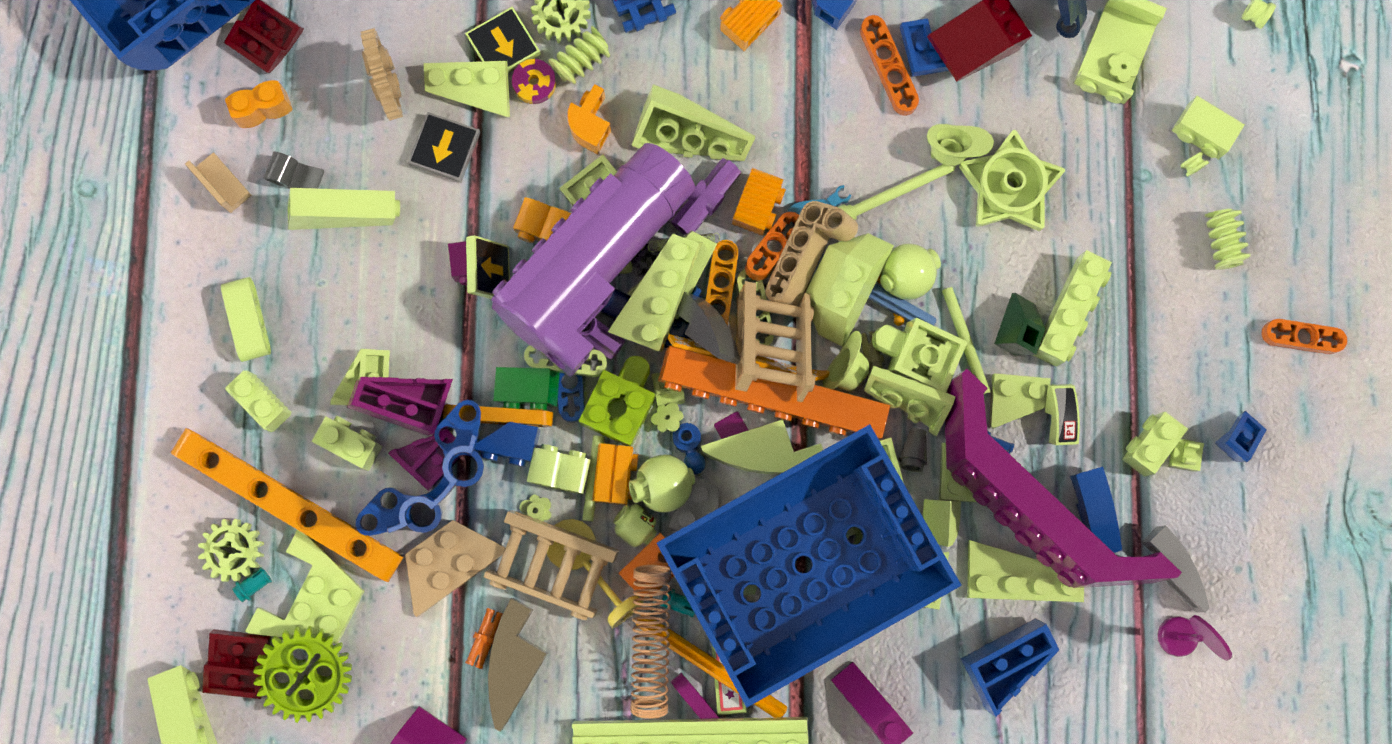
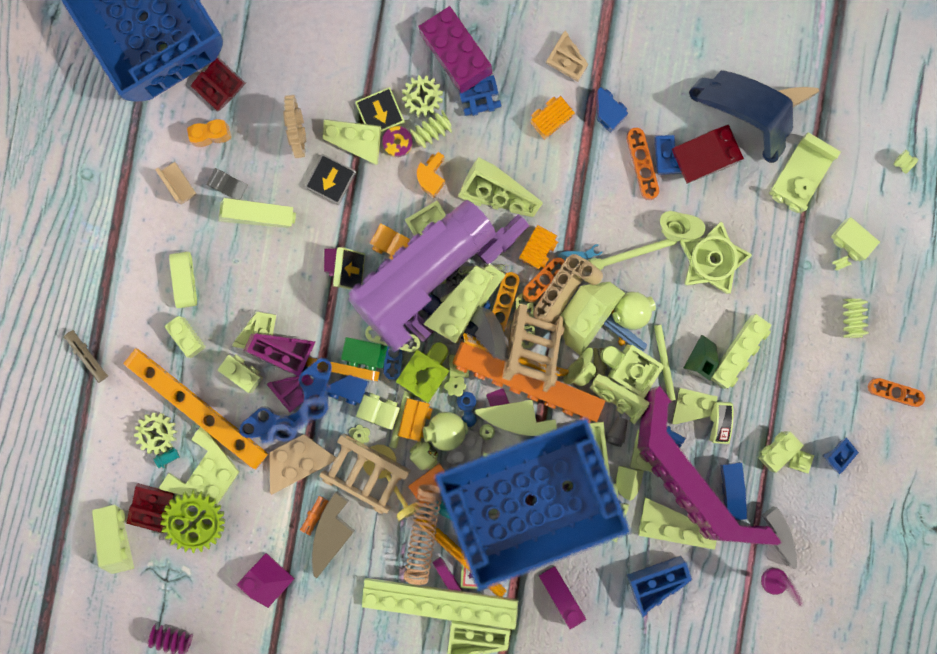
camera: 15 degrees right, 5 degrees up
(90, 428) = (97, 371): none -> dark tan pin
(723, 484) = (491, 431): none -> yellowish green piece

